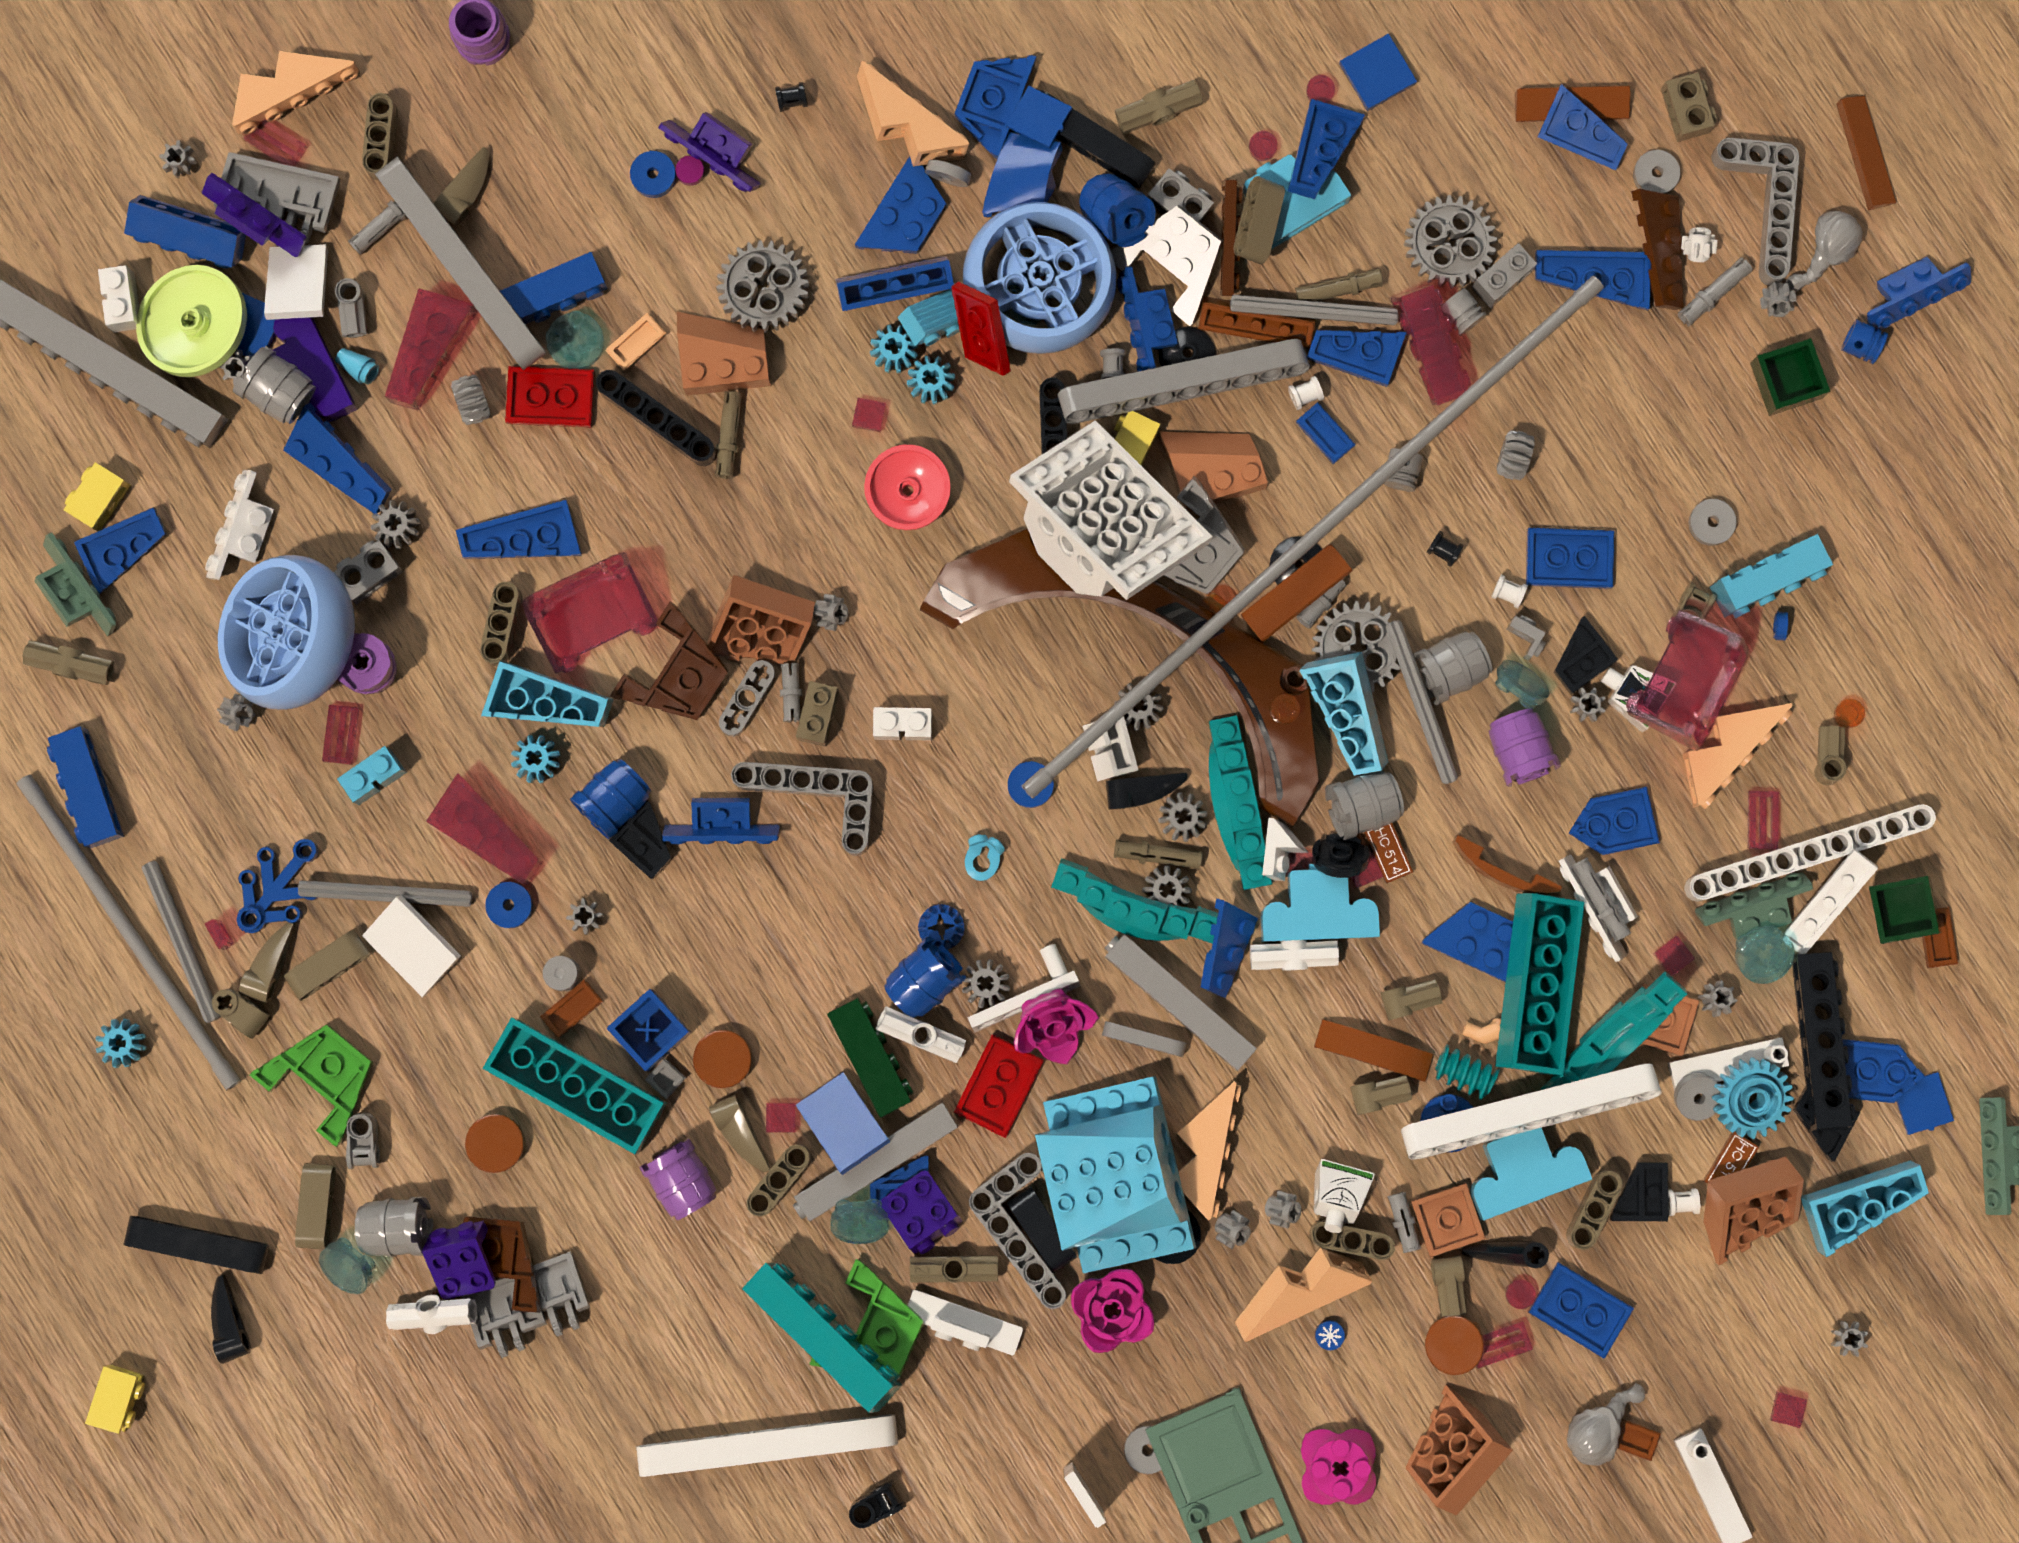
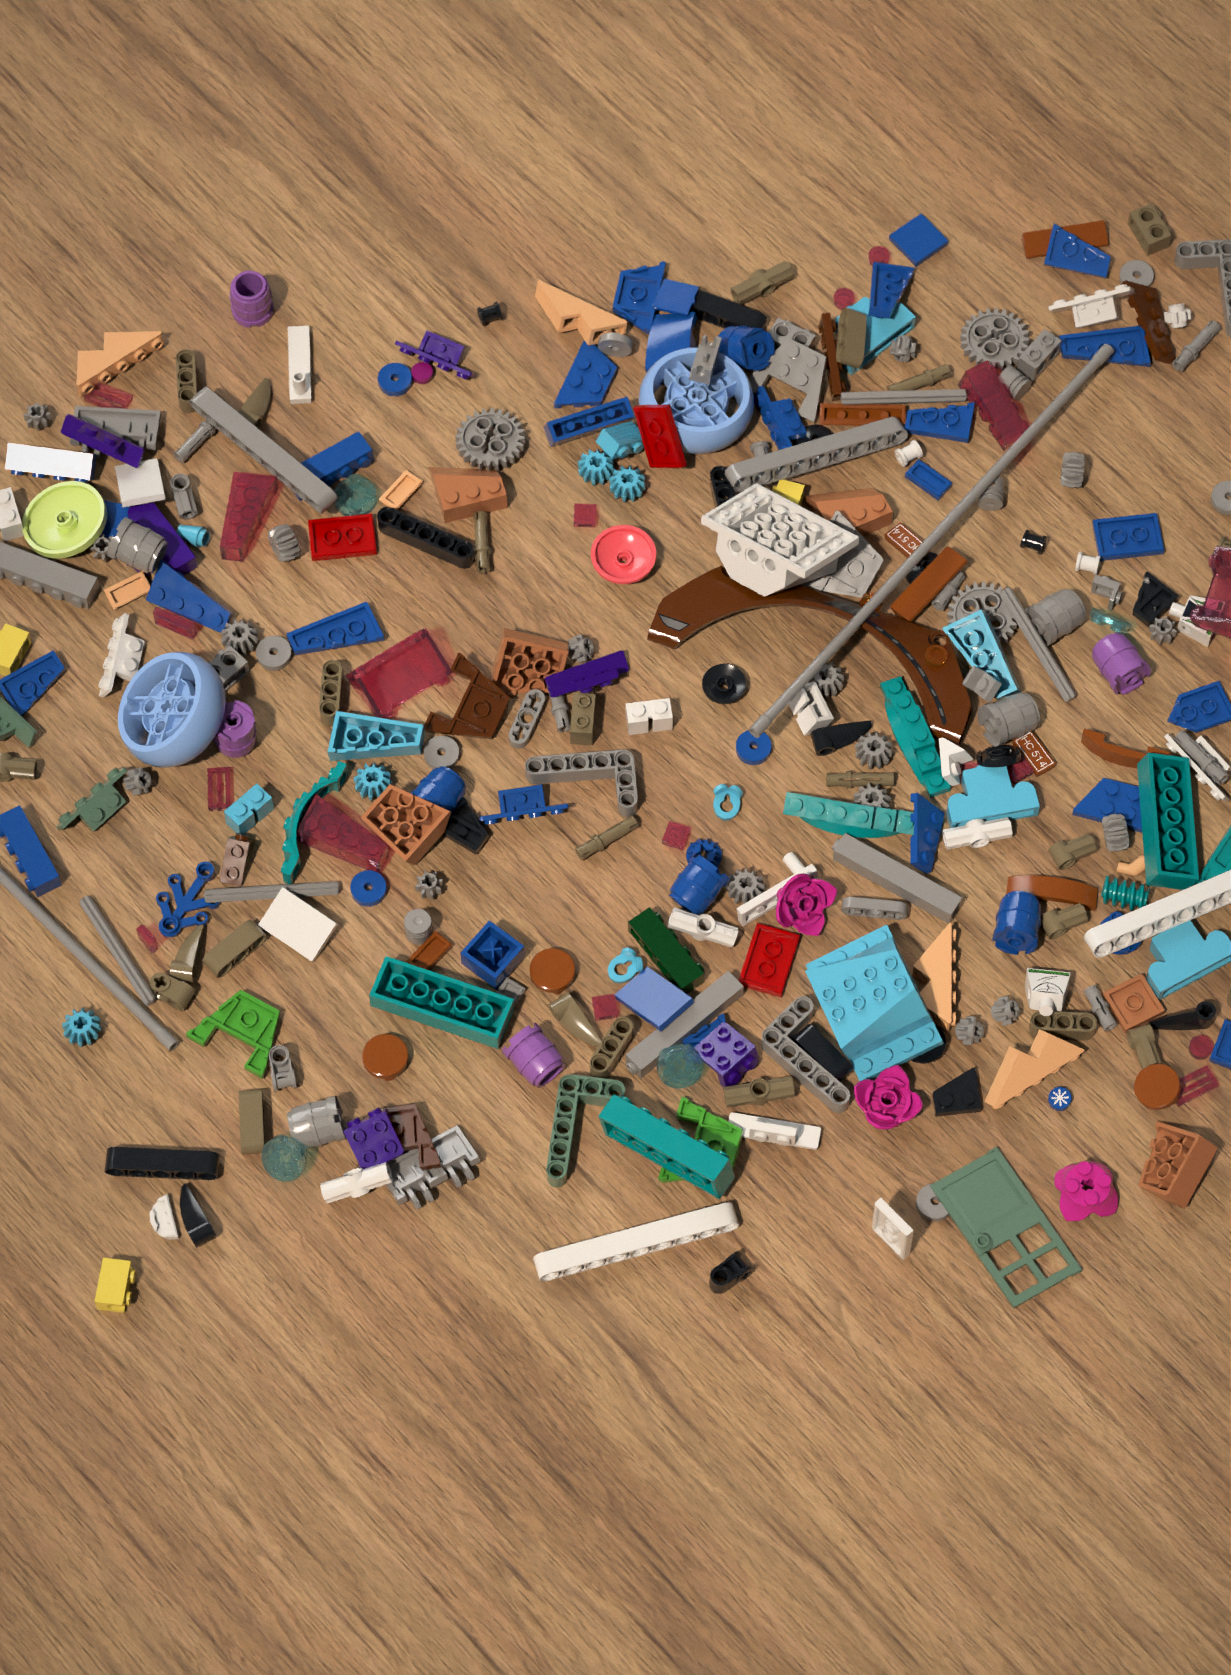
camera: 10 degrees left, 20 degrees down
(181, 735) = (98, 805): none -> sand green bracket
(188, 1316) = (162, 1219): none -> white tile
(259, 434) = (127, 590): none -> light nougat tile
(314, 491) = (174, 623): none -> clear pink tile
(346, 838) = (235, 859): none -> bracket
(424, 551) = (272, 644): none -> light grey piece
(439, 782) = (324, 786): none -> teal piece
(531, 132) = (299, 364): none -> white piece
(563, 834) = (406, 822): none -> nougat wedge
(617, 729) = (441, 744): none -> light grey piece
(711, 1269) = (568, 1119): none -> sand green beam
(810, 889) = (598, 842): none -> dark tan pin
(818, 1052) = (626, 955): none -> medium azure piece
(834, 655) = (587, 675): none -> dark purple bracket
(910, 894) = (676, 835): none -> clear pink tile
(1011, 677) = (727, 676): none -> black dish
(1058, 230) = (705, 360): none -> light grey hinge
(1203, 1311) = (958, 1095): none -> black wing
(1279, 522) = (903, 539): none -> dark orange tile
(1321, 1093) = (1017, 923): none -> blue piece
(1326, 237) = (903, 348): none -> light grey gear
(1338, 758) = (982, 683): none -> light grey bracket
(1470, 987) = (1115, 832): none -> light grey gear
(1590, 221) = (1094, 308): none -> white bracket

